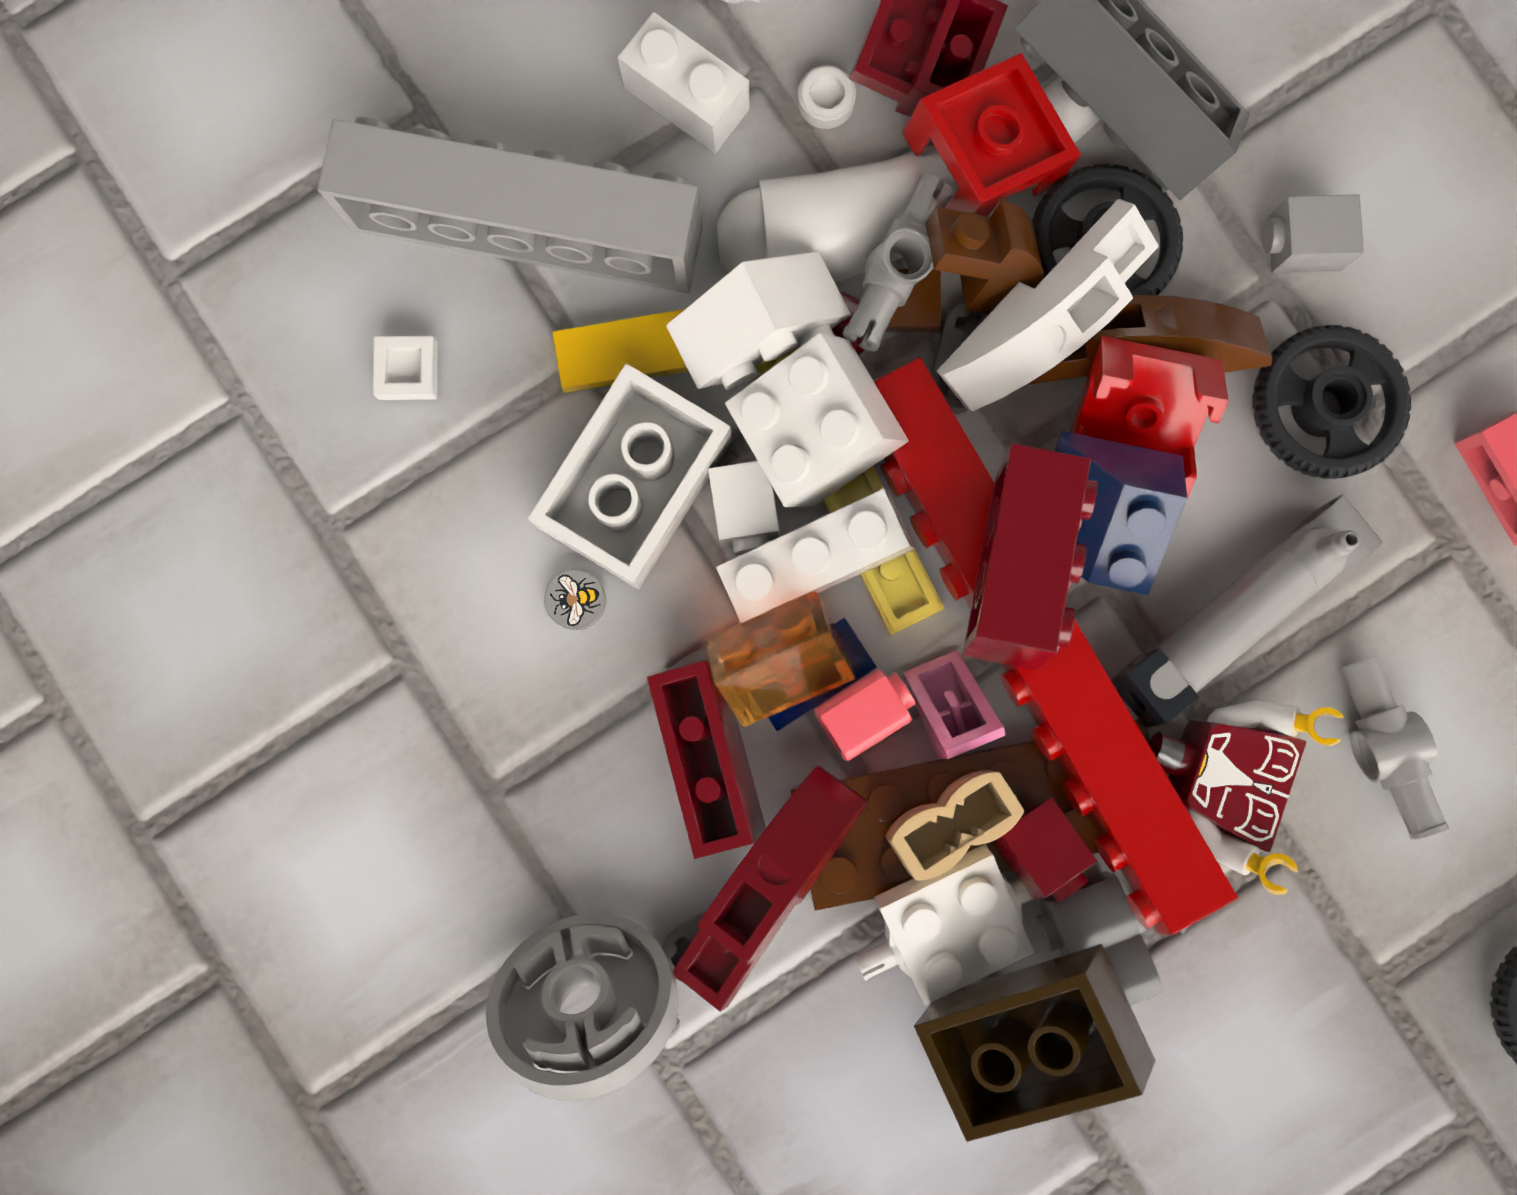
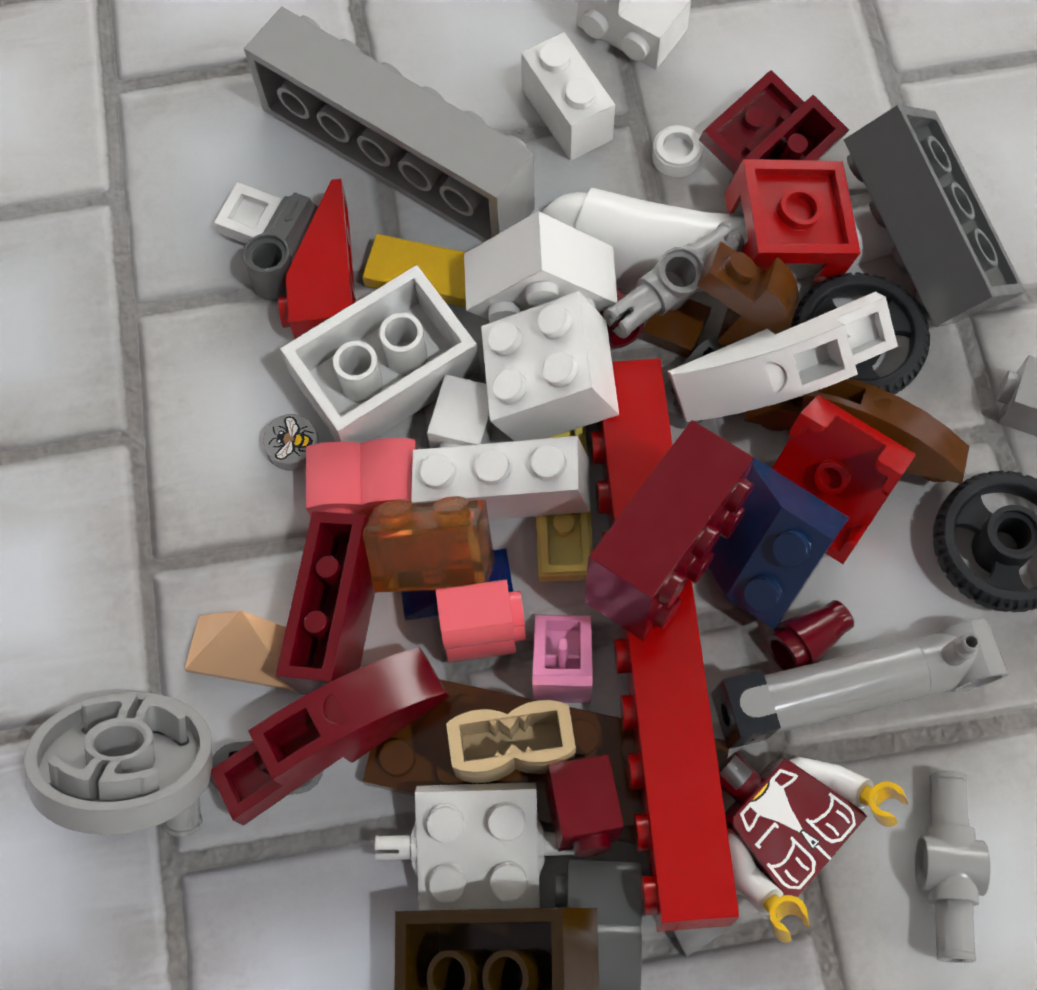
camera: 25 degrees right, 15 degrees down
(460, 384) = (278, 246): none -> dark grey piece
(520, 409) = (322, 270): none -> red slope
(631, 835) = (237, 648): none -> light nougat slope
(670, 614) = (358, 475): none -> coral brick
(1179, 582) = (809, 635): none -> dark red cone

